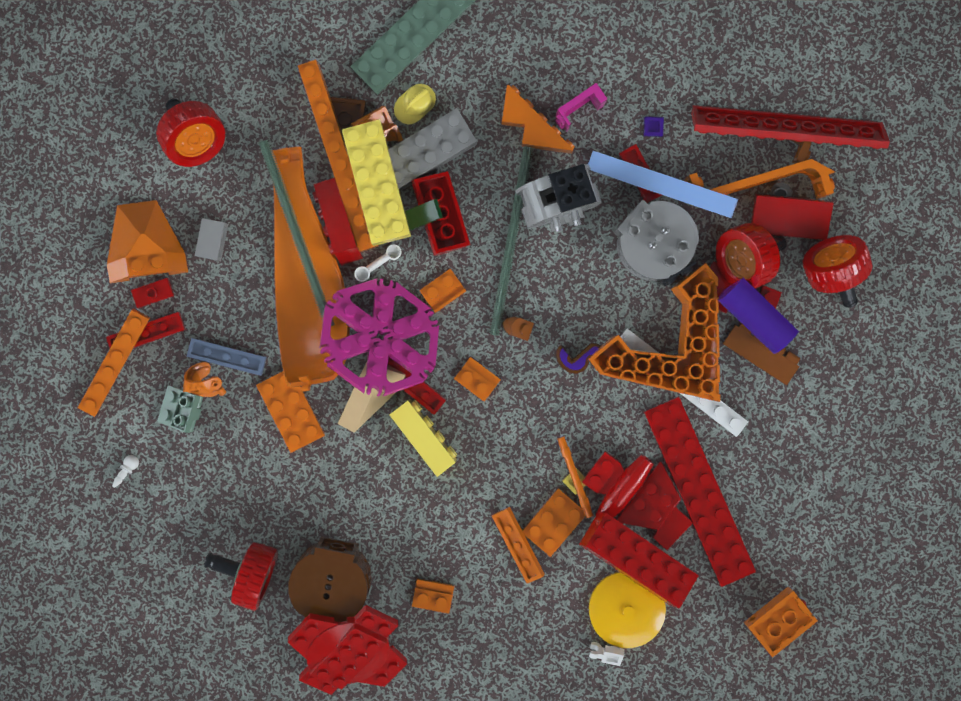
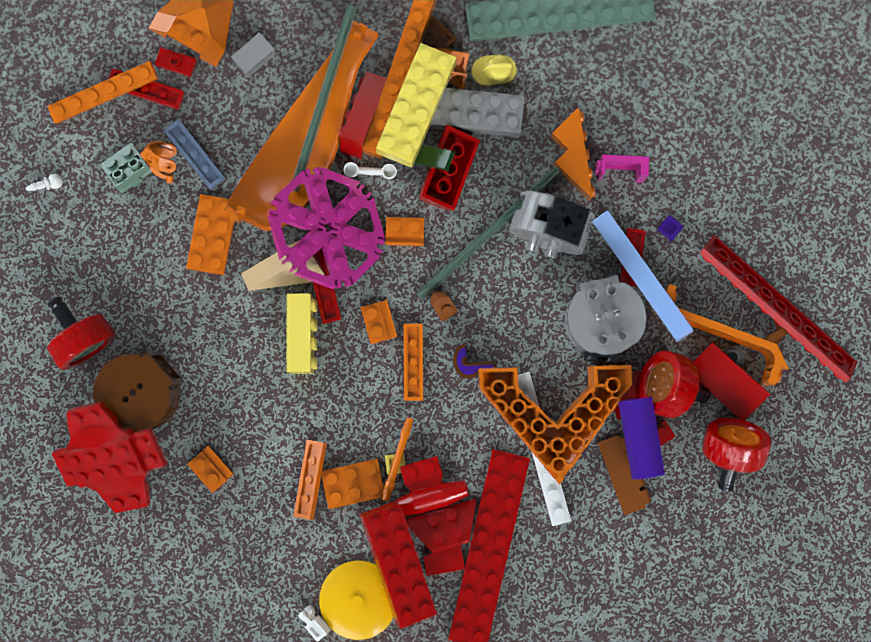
camera: 30 degrees right, 5 degrees down
(529, 390) = (413, 362): none -> orange plate

